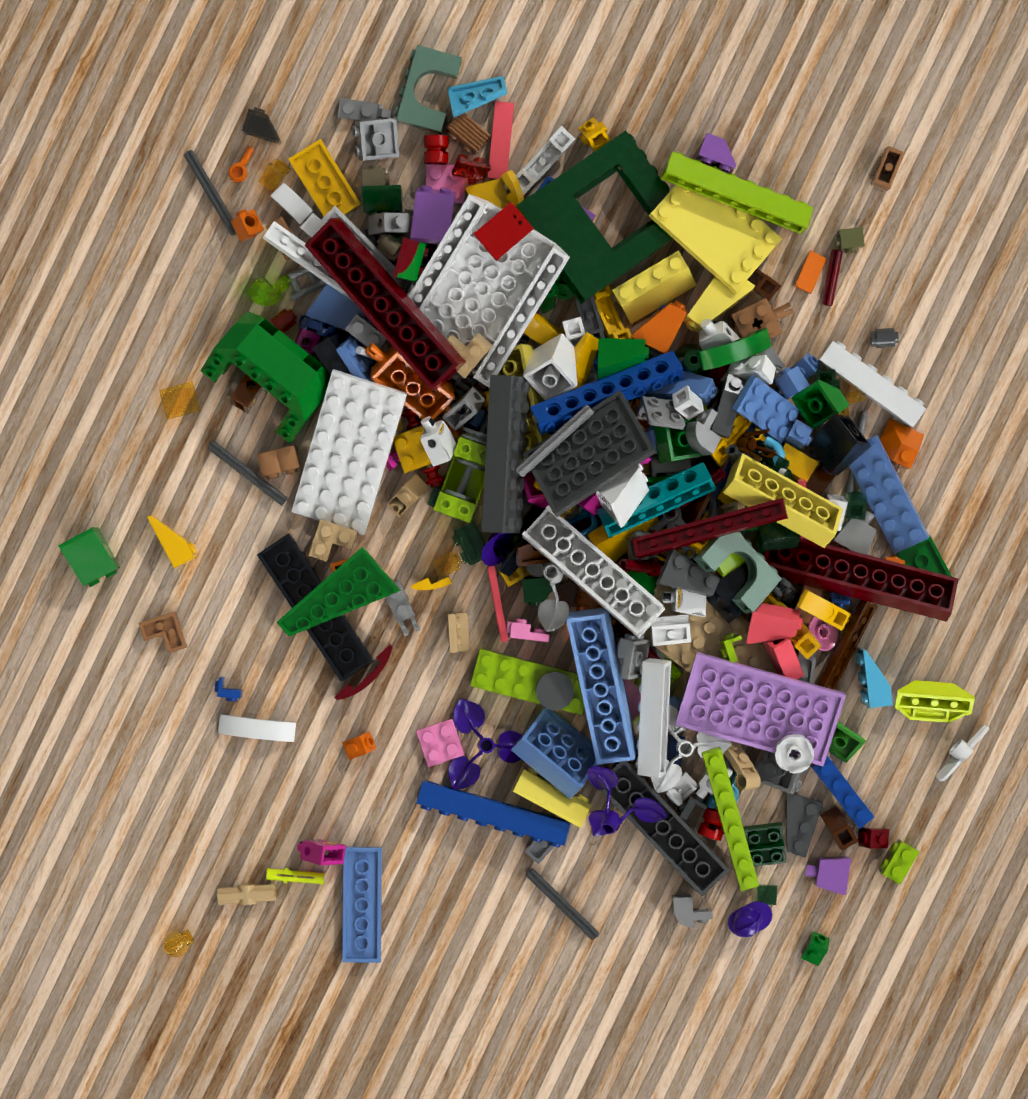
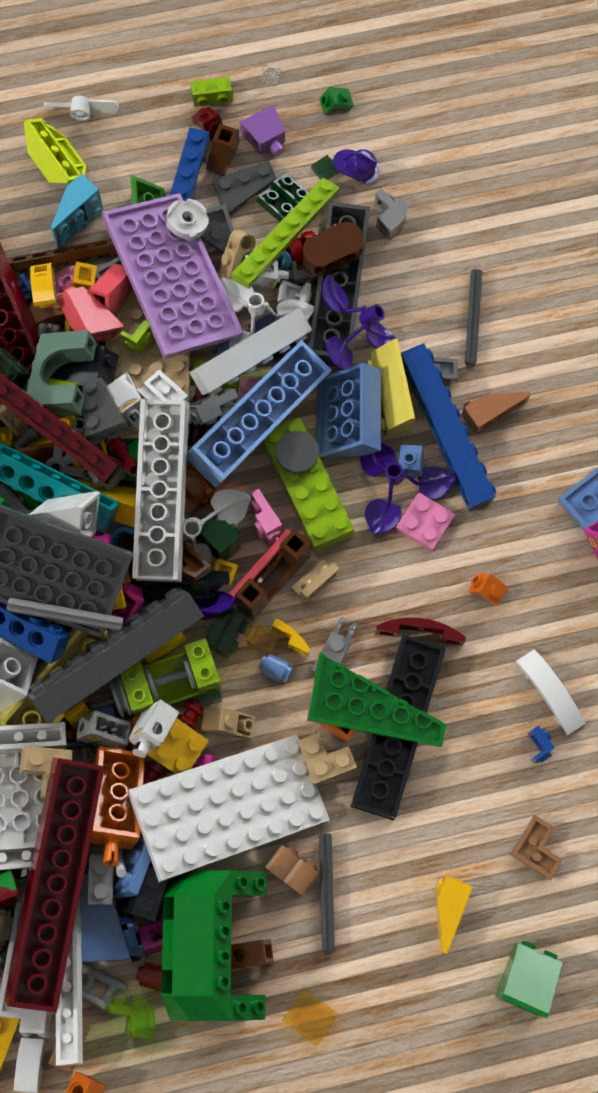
camera: 130 degrees left, 15 degrees down
(419, 556) = (275, 668): none -> medium blue brick
(481, 604) = (256, 595): none -> reddish brown arch
(483, 854) = (490, 409): none -> nougat slope
(489, 767) = (411, 460): none -> medium blue brick
(687, 840) = (332, 248): none -> reddish brown brick
(877, 910) = (270, 80): none -> clear plate

